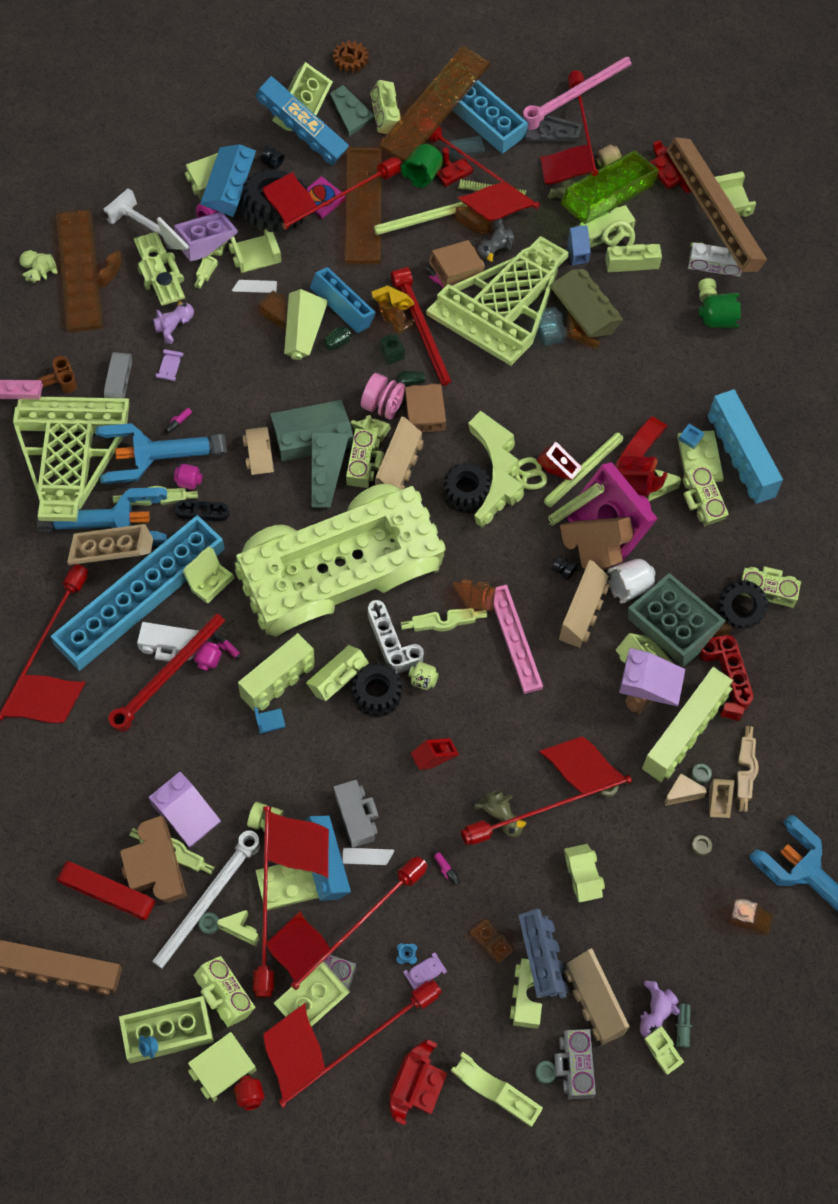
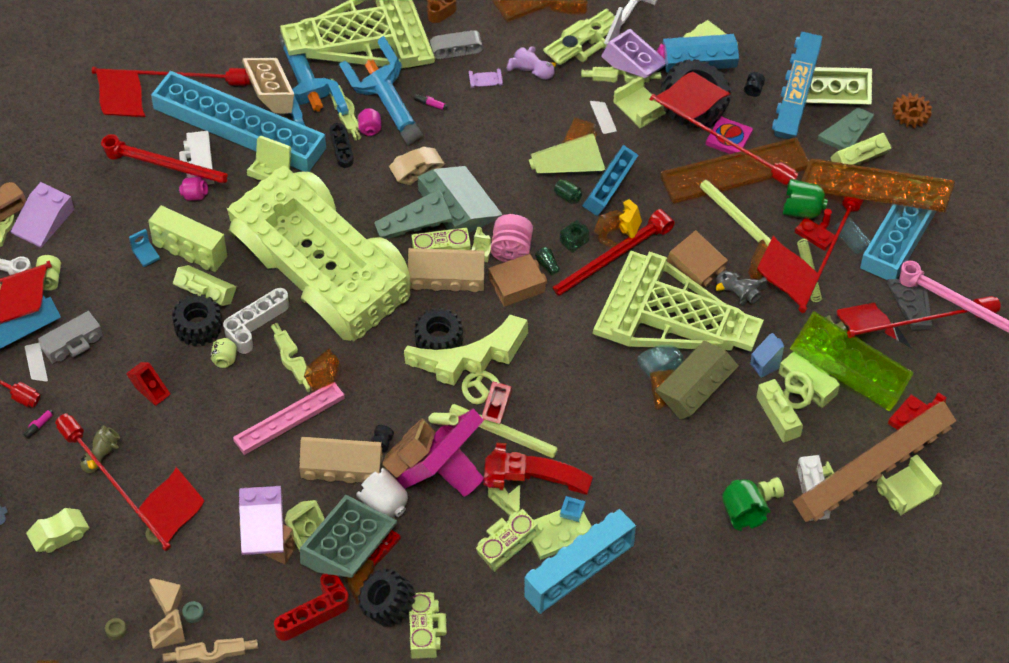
camera: 75 degrees right, 10 degrees down
(226, 645) = (211, 201): piece -> none
(607, 155) = (902, 356): tan head -> none
(688, 725) = (234, 578): yellowish green brick -> none
(732, 711) = (267, 621): red plate -> none

